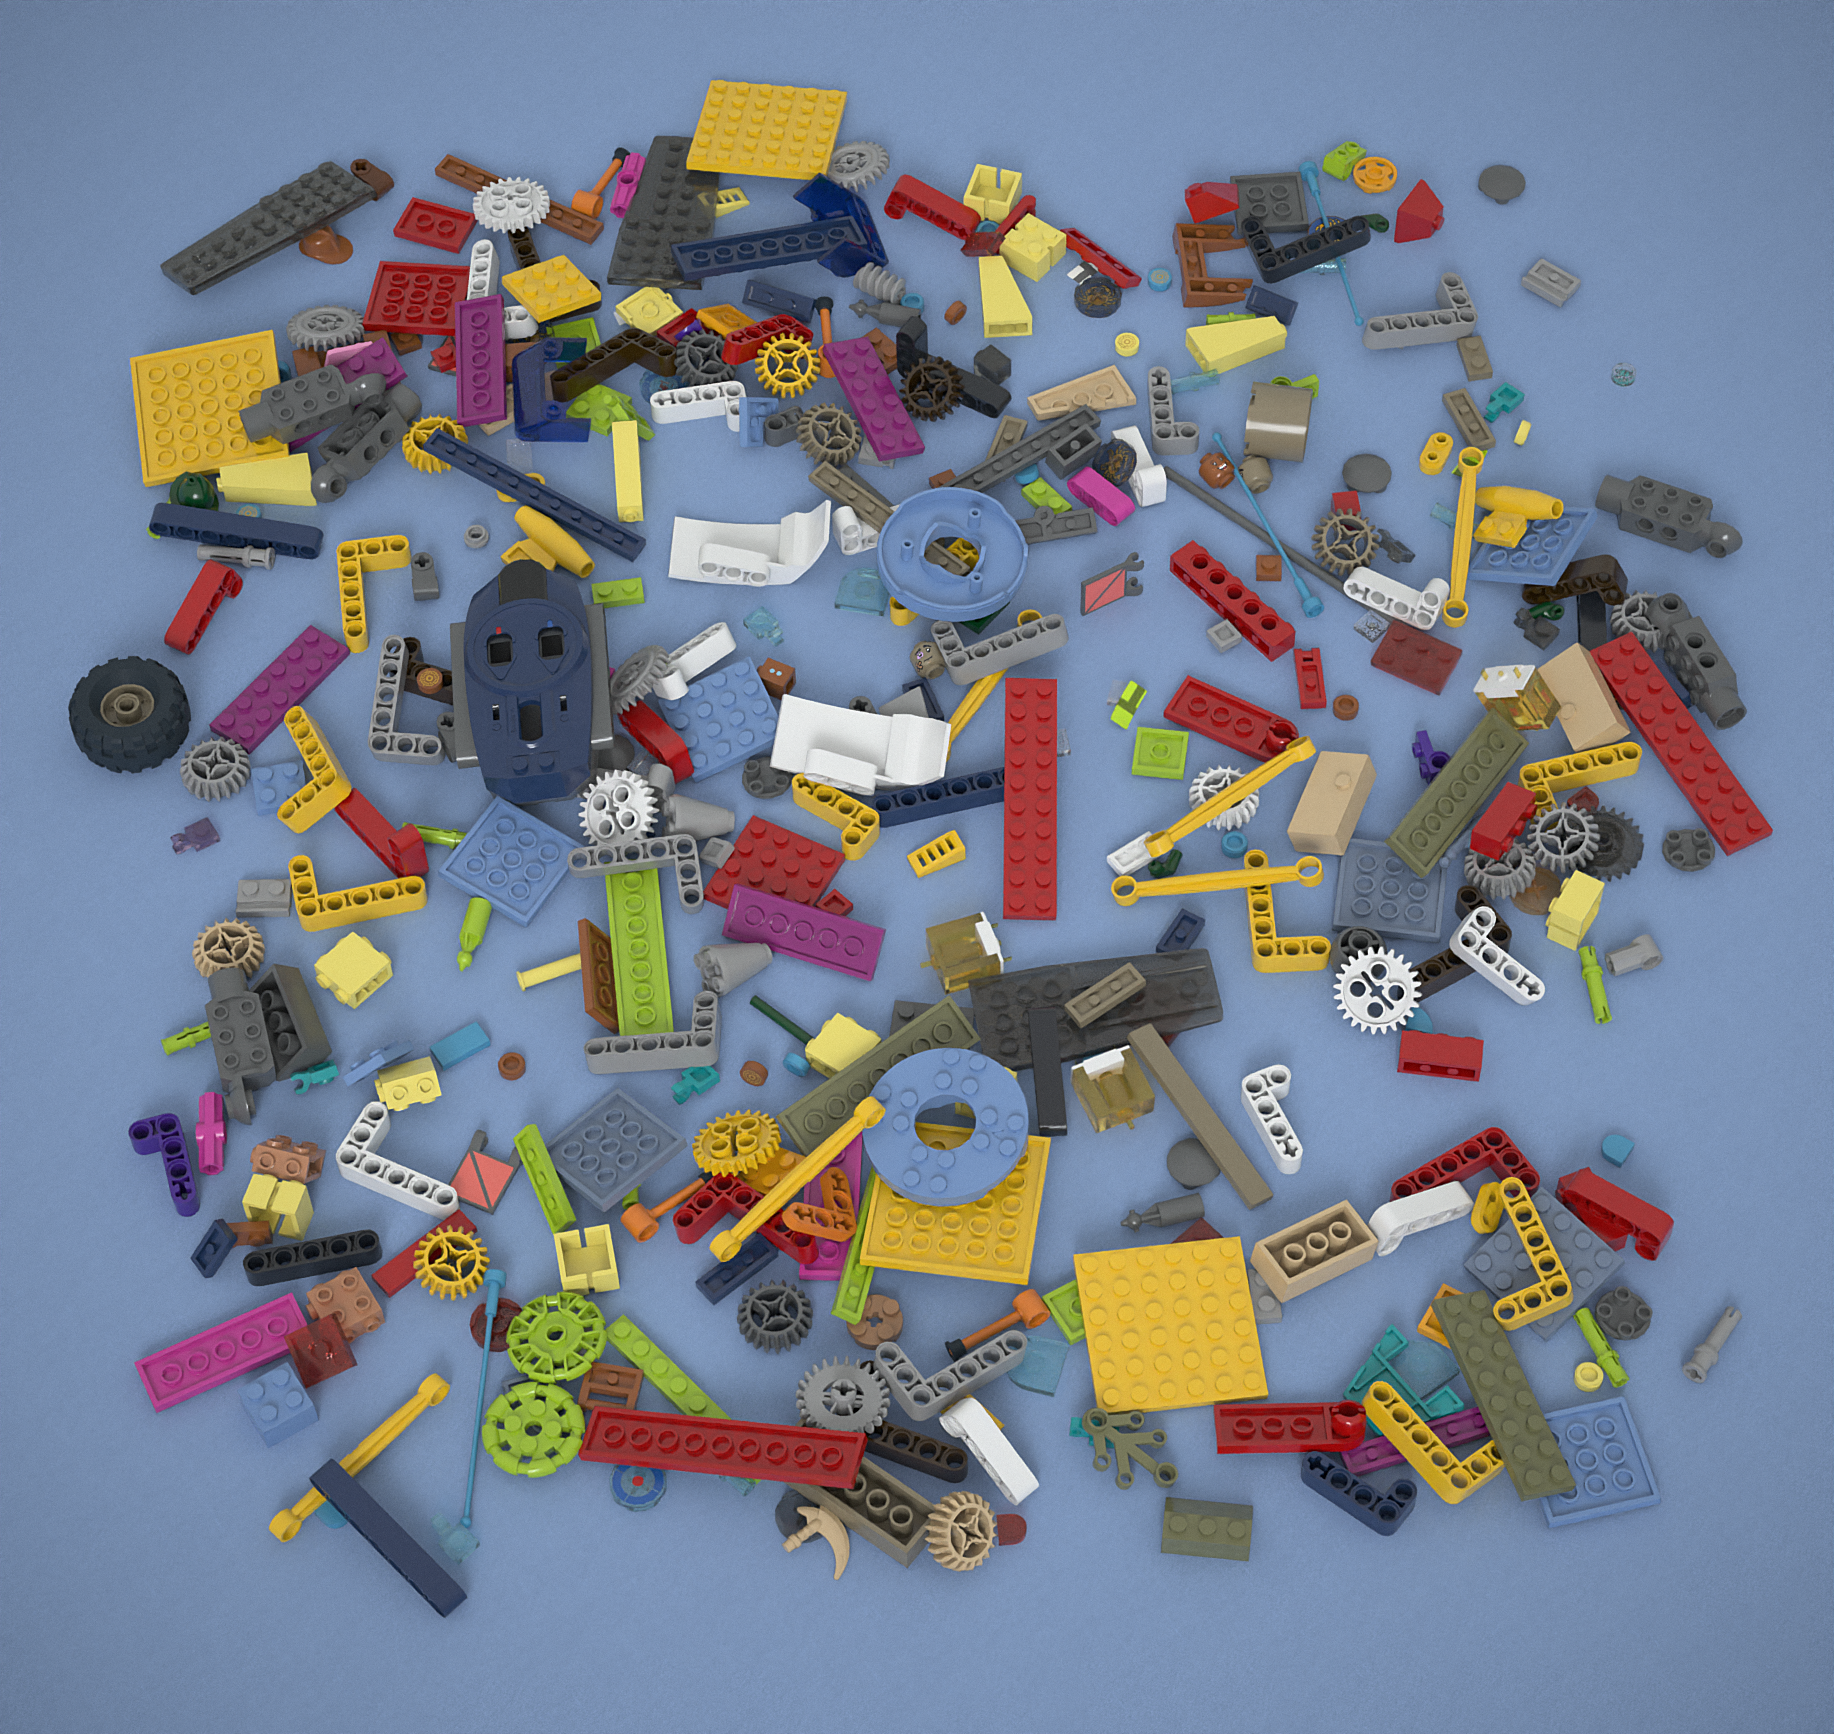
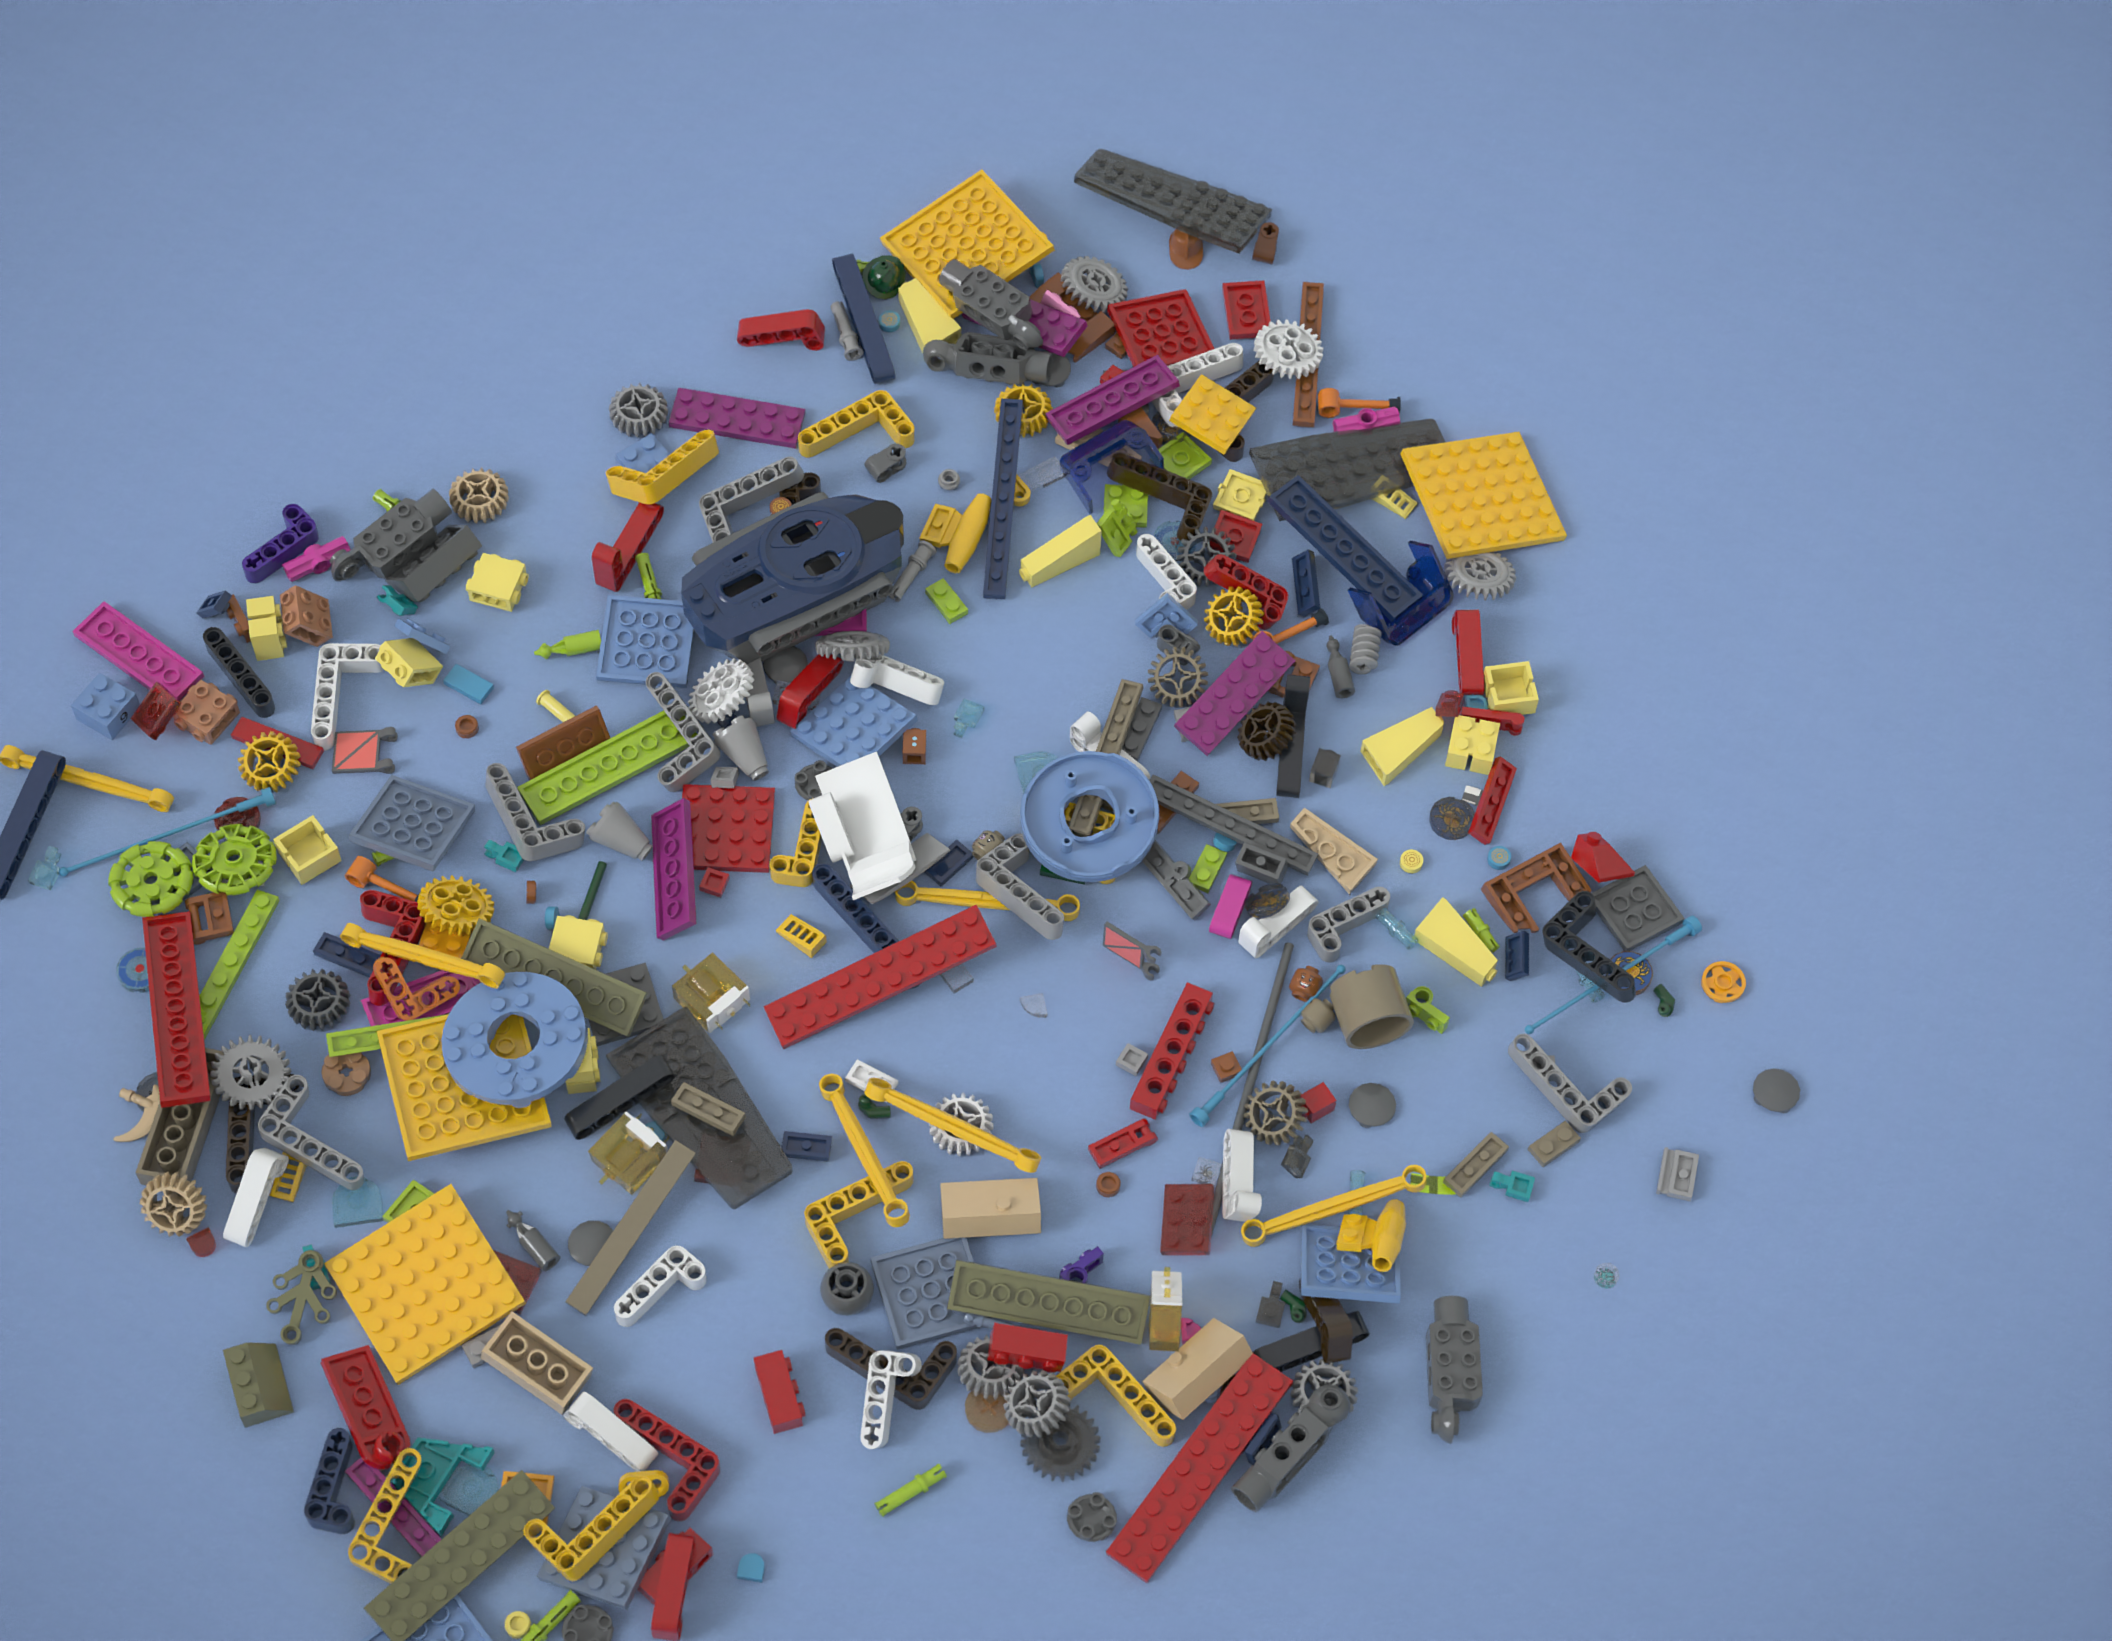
camera: 60 degrees right, 5 degrees up
(129, 714) = (650, 330): black wheel -> none
(197, 835) = (575, 429): clear purple plate -> none
(264, 898) = (541, 497): light grey plate -> none
(348, 900) = (548, 536): yellow beam -> none
(544, 1179) = (374, 783): lime plate -> none
(694, 326) = (1230, 531): dark purple piece -> none
(724, 319) = (1259, 553): light orange plate -> none
(749, 552) = (1029, 665): white beam -> none
(913, 300) = (1363, 682): dark azure tile -> none
(955, 312) = (1368, 717): dark orange tile -> none
(1028, 1309) = (397, 1176): orange piece -> none
(1128, 704) = (1022, 1015): clear neon green sticker -> none
(1160, 753) = (984, 1058): lime plate -> none
(1230, 720) = (1045, 1099): red plate -> none
(1234, 844) = (921, 1152): dark azure tile -> none
(1342, 159) = (1722, 947): lime plate -> none
(1358, 1006) = (811, 1314): white gear -> none
(1418, 215) = (1685, 1031): red slope -> none
(1419, 1021) = (807, 1364): dark azure tile -> none
(1438, 449) = (1427, 1155): yellow plate -> none
(1522, 432) = (1485, 1213): light yellow tile -> none
(1574, 909) = (970, 1442): light yellow piece -> none
(1584, 799) = (1103, 1413): clear red tile -> none
(1640, 953) = (959, 1516): light grey piece -> none

